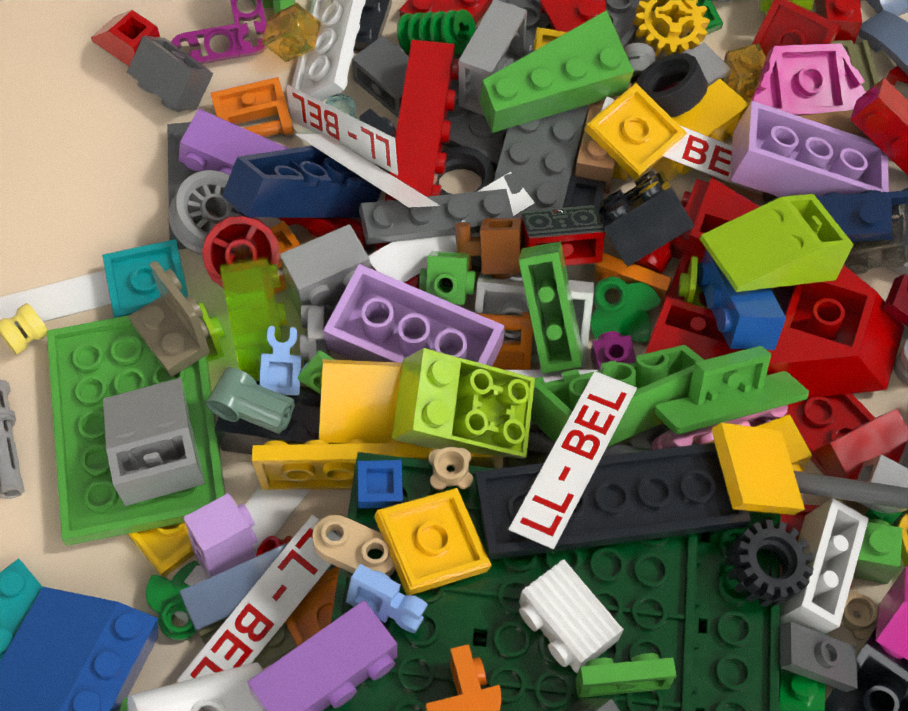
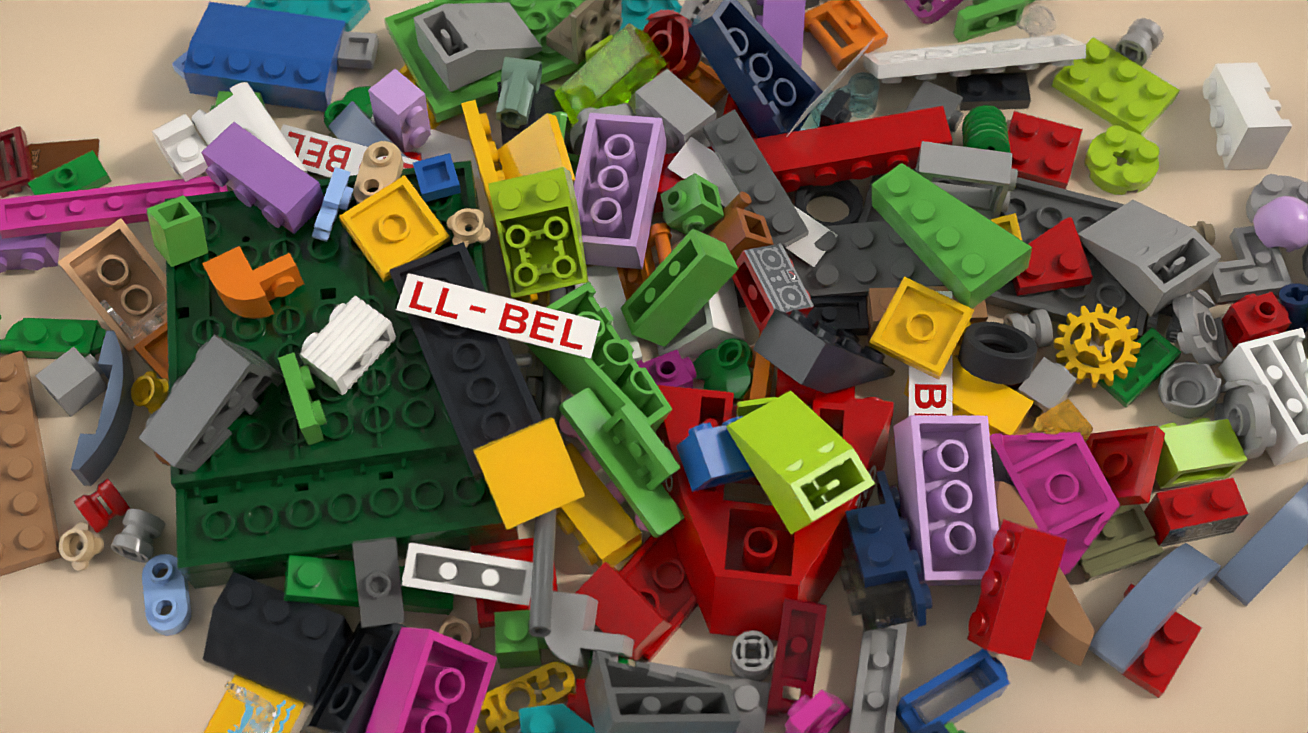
camera: 75 degrees right, 0 degrees up
(90, 578) = (358, 50): none -> light grey plate
(280, 369) = (572, 103): light blue plate -> none
(291, 32) = (939, 29): clear yellow brick -> none
(367, 170) = (780, 111): white sticker -> none
(787, 551) = (434, 485): black tyre -> none

